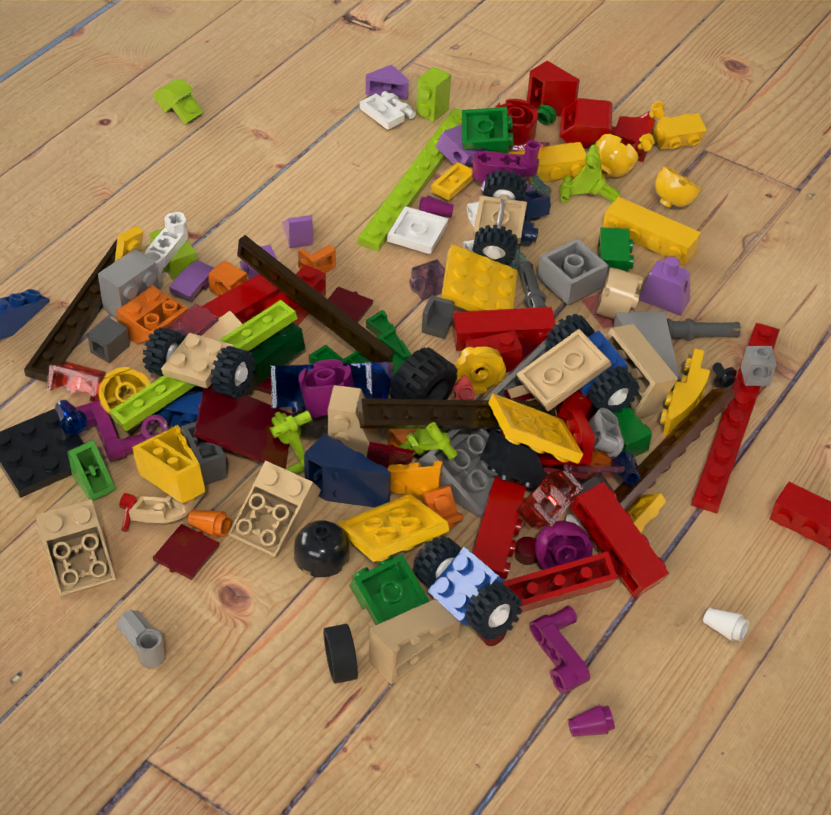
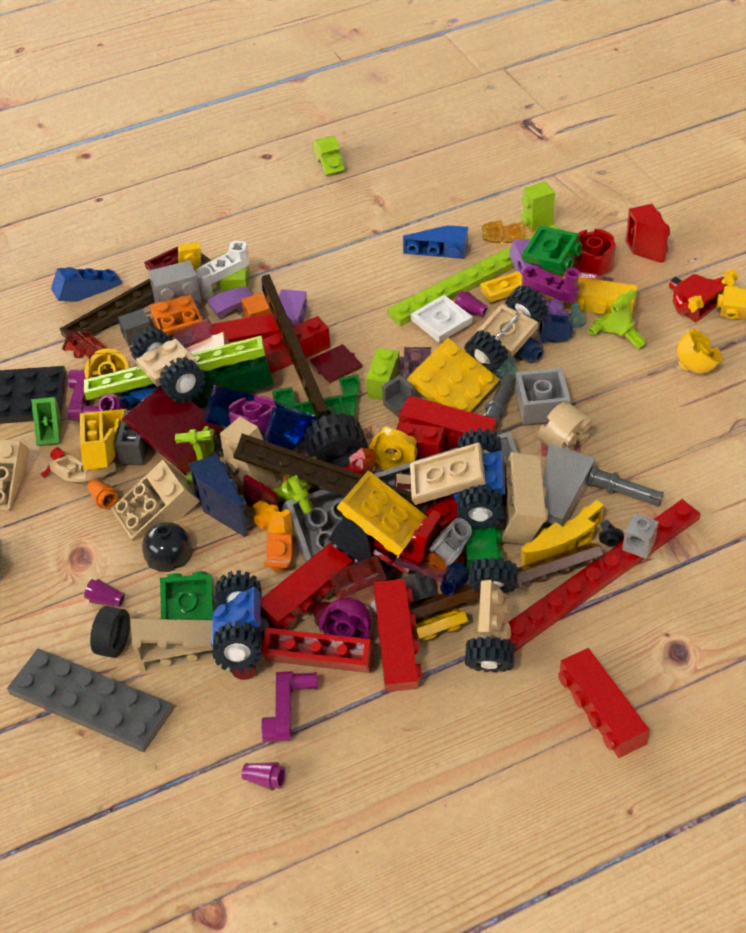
camera: 35 degrees right, 0 degrees up
(70, 418) = (58, 375): clear blue cone -> none
(88, 262) = (165, 259): none -> dark red tile
(186, 551) = (72, 509): dark red piece -> none
(294, 621) = (102, 593): none -> magenta cone
(299, 231) = (343, 288): medium lavender slope -> none
(321, 260) = (339, 319): orange bracket -> none
(360, 156) = (439, 242): none -> blue slope
(361, 730) = (90, 699): none -> dark grey plate
(387, 109) = (490, 208): white plate -> none
(388, 80) = (509, 185): medium lavender slope -> none
(393, 527) = (223, 551): yellow plate -> none
(406, 300) = (382, 370): none -> lime brick
(416, 129) = (497, 233): none -> clear yellow slope
(546, 114) = (632, 253): green plate -> none
(586, 121) = (656, 269): red slope -> none
(615, 248) = (594, 392): green brick -> none
(616, 157) = (659, 309): yellow cylinder -> none
(653, 230) = (647, 385): yellow brick -> none
(667, 286) = (618, 438): medium lavender torso -> none
(678, 449) = (493, 581): none -> black plate
(728, 624) = (443, 748): white cone -> none

